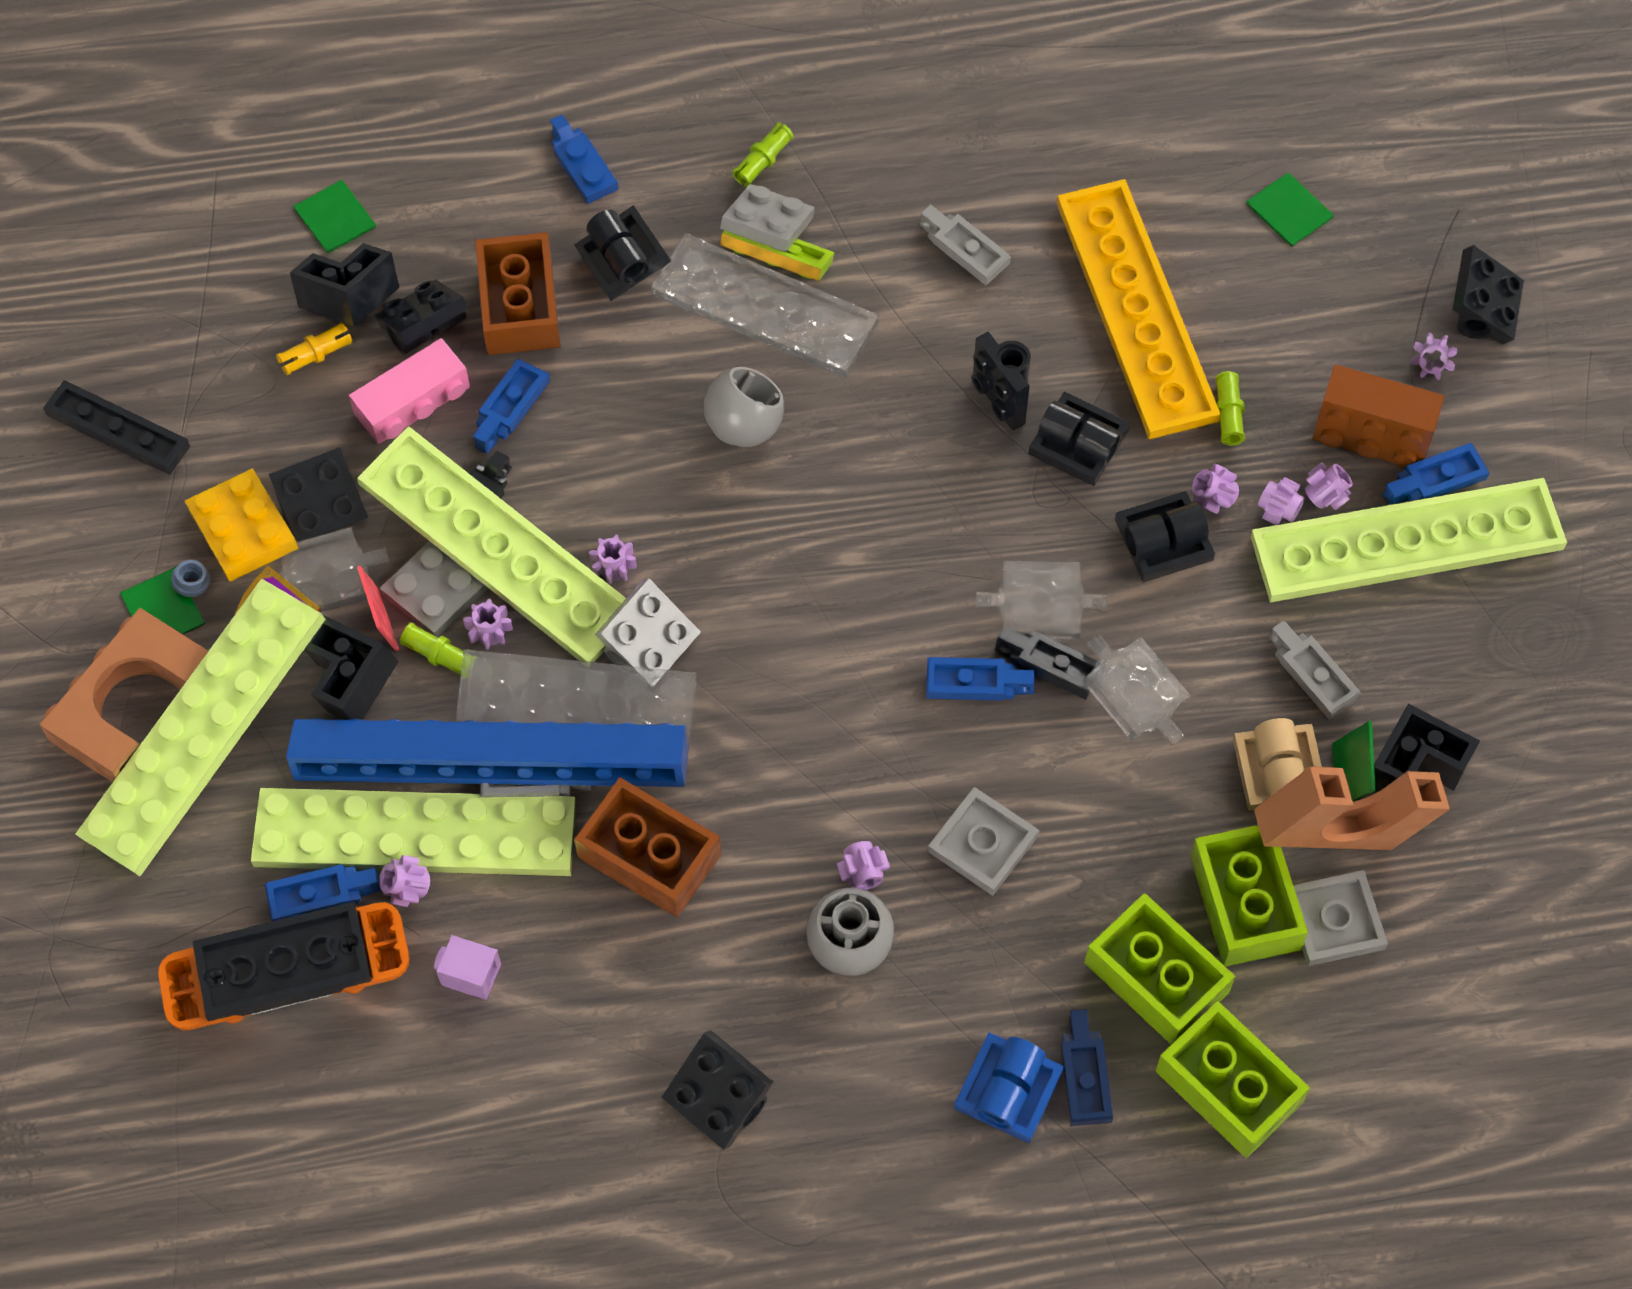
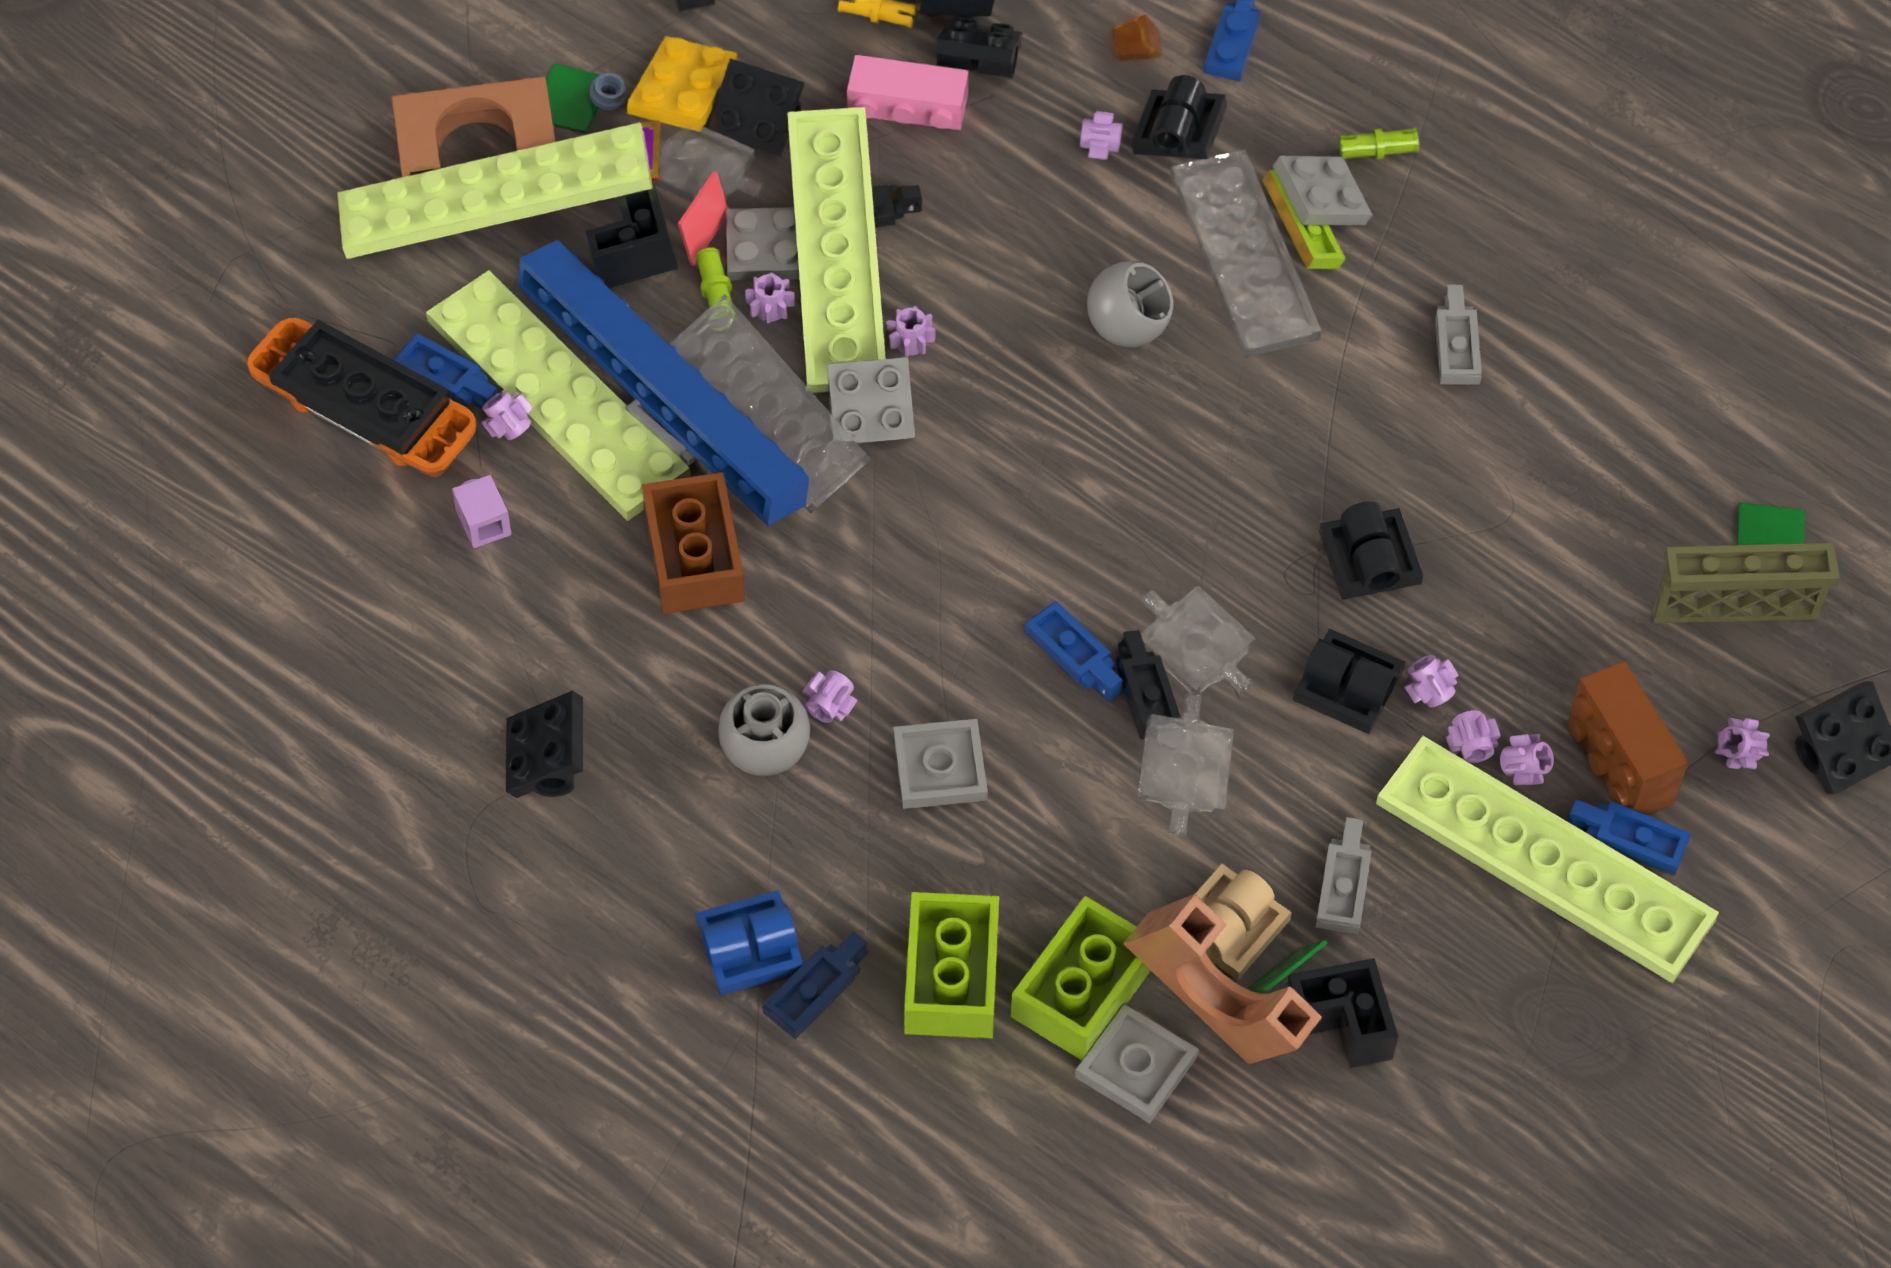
camera: 45 degrees right, 5 degrees down
(509, 404) = (968, 162): blue hinge -> none
(517, 218) = (1137, 40): none -> clear orange slope
(517, 293) = (1062, 86): dark orange brick -> none
(579, 306) = (1101, 135): none -> lavender gear
(1003, 376) = (1358, 455): black plate -> none
(1138, 309) = (1538, 502): yellow plate -> none
(1230, 407) = (1522, 637): lime pin -> none
(1232, 1079) = (910, 1088): lime brick -> none
(1332, 245) = (1731, 569): none -> olive fence

